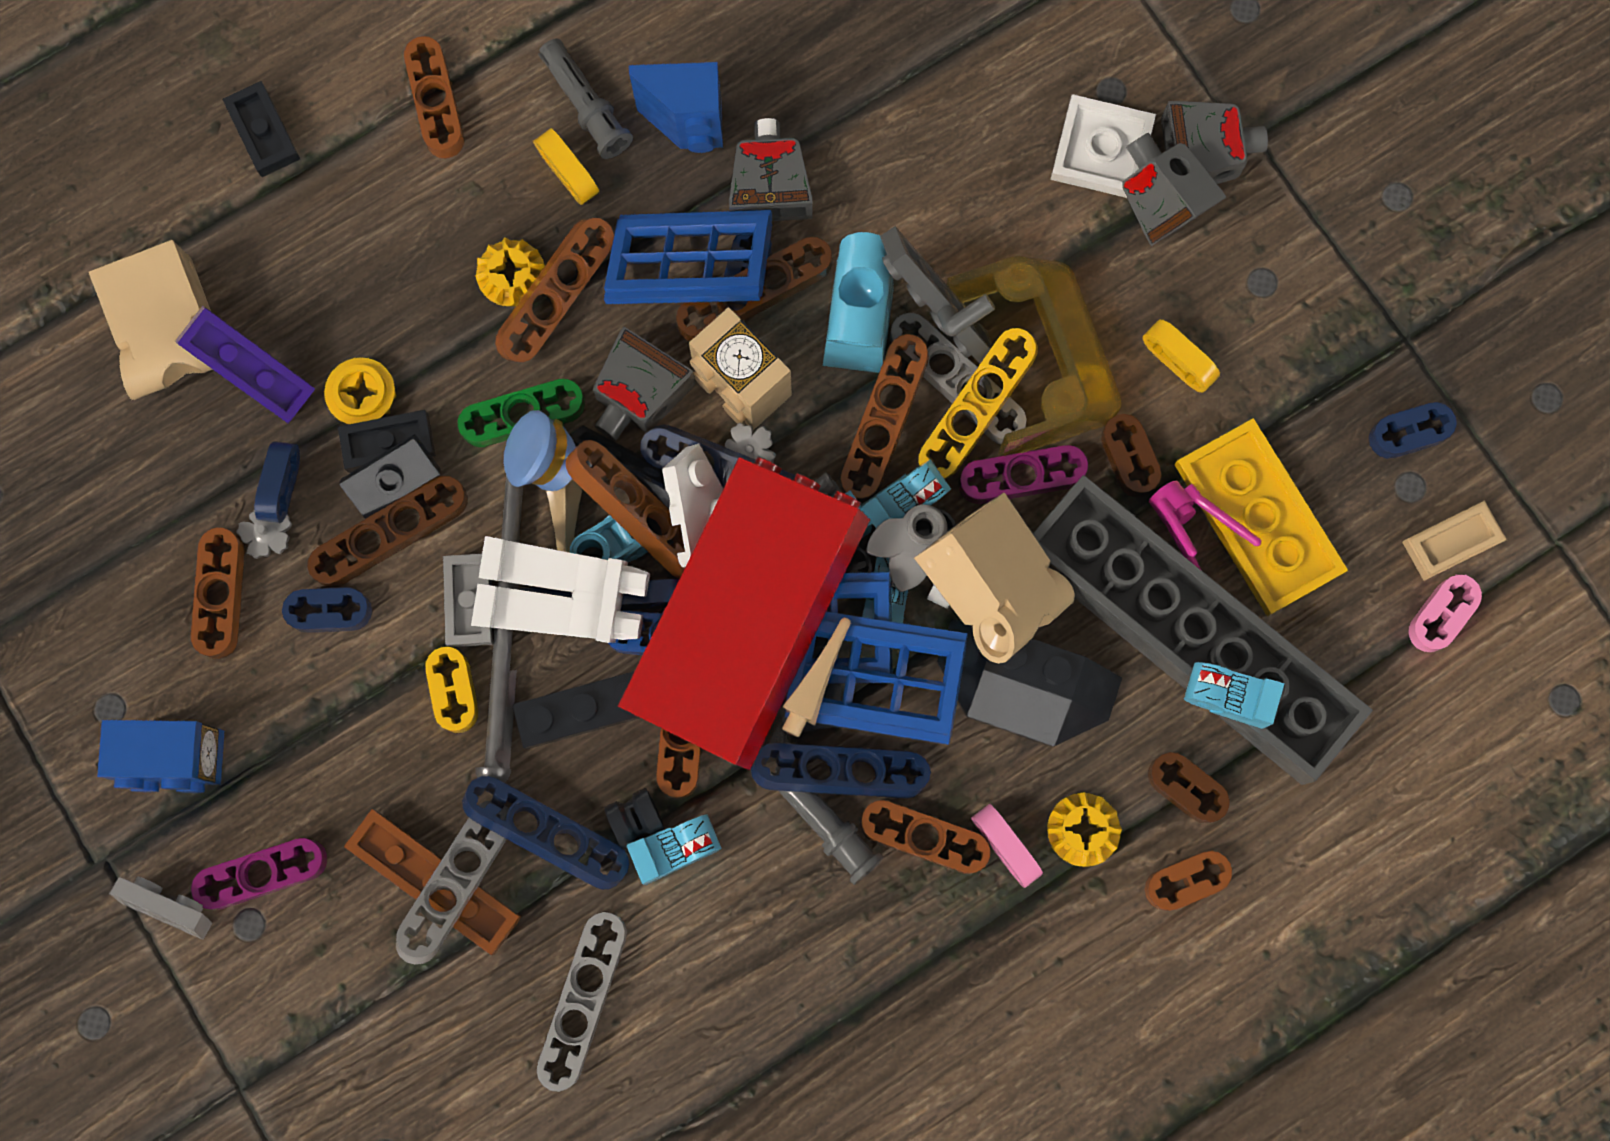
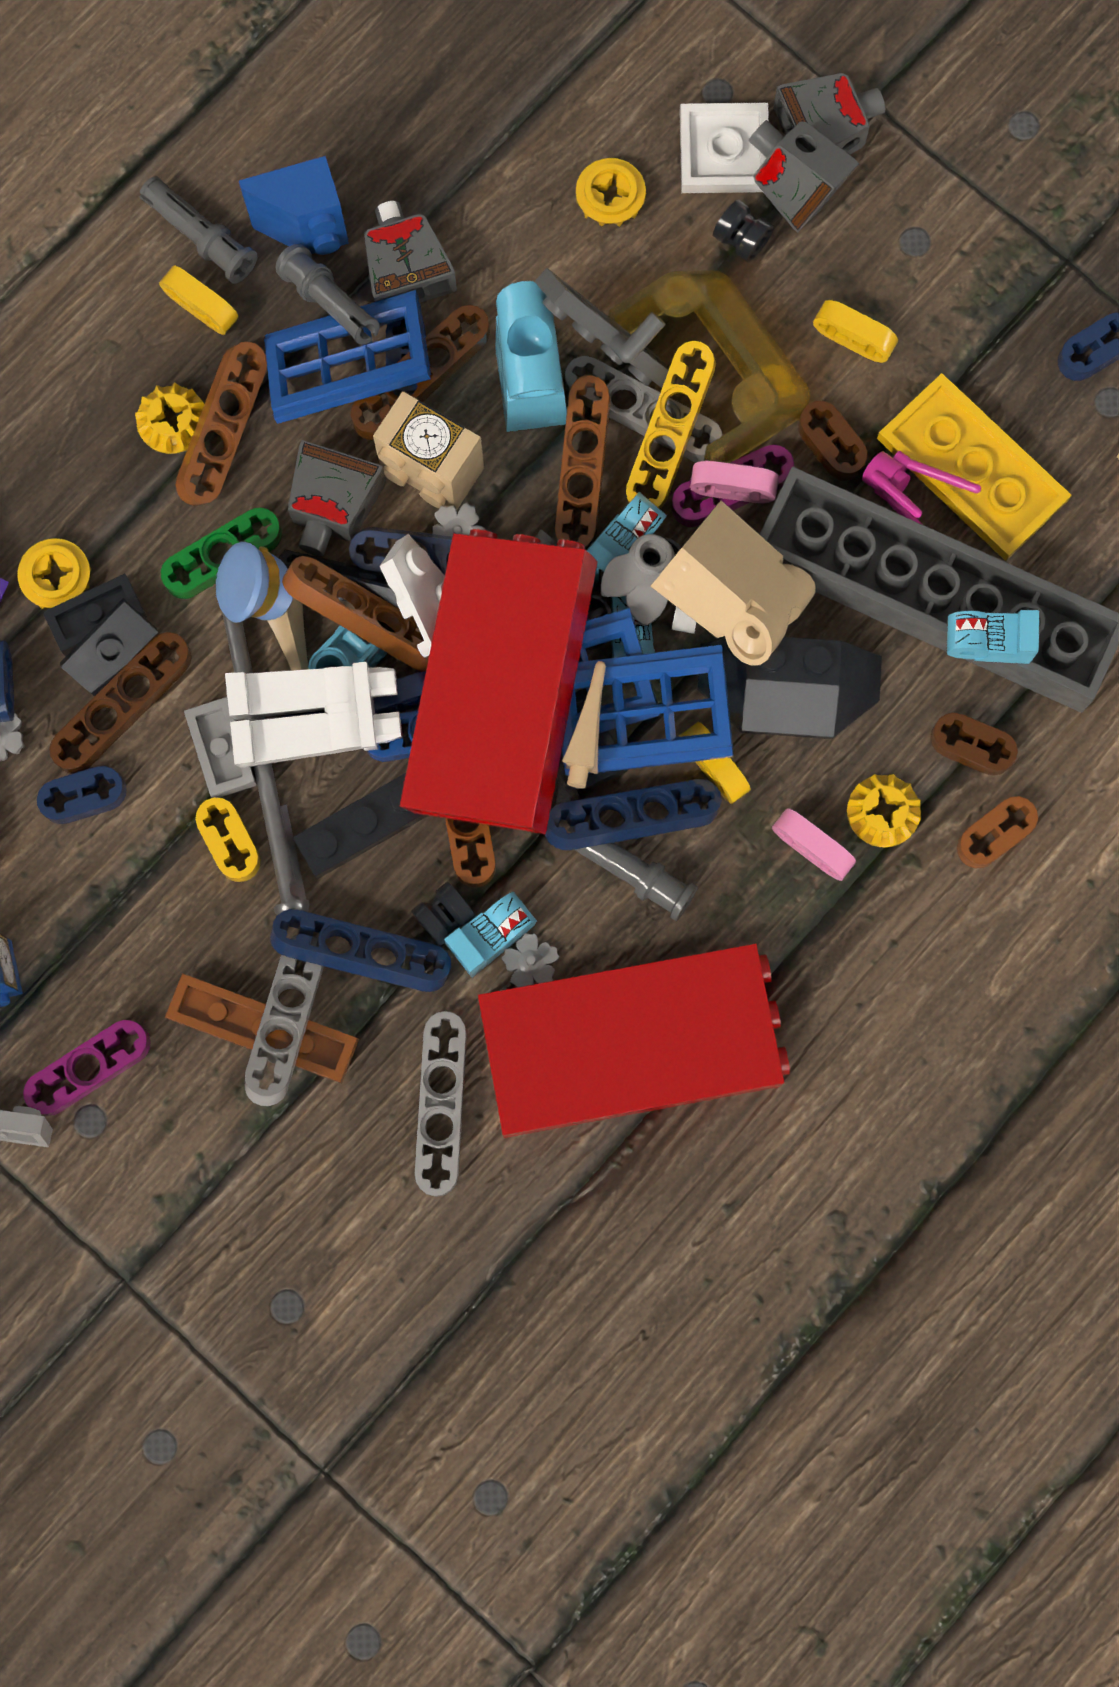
camera: 15 degrees left, 0 degrees up
(421, 84) = (46, 283): dark orange beam -> none
(679, 180) = (317, 285): none -> dark grey pin
(705, 885) = (530, 961): none -> light grey plant
(780, 992) = (632, 1040): none -> red brick
(938, 755) = (722, 771): none -> yellow beam
(961, 837) = (718, 872): dark orange beam -> none
(977, 144) = (599, 177): none -> yellow gear
(1024, 473) = (734, 482): none -> bright pink beam
(1099, 231) = (743, 230): none -> black wheel

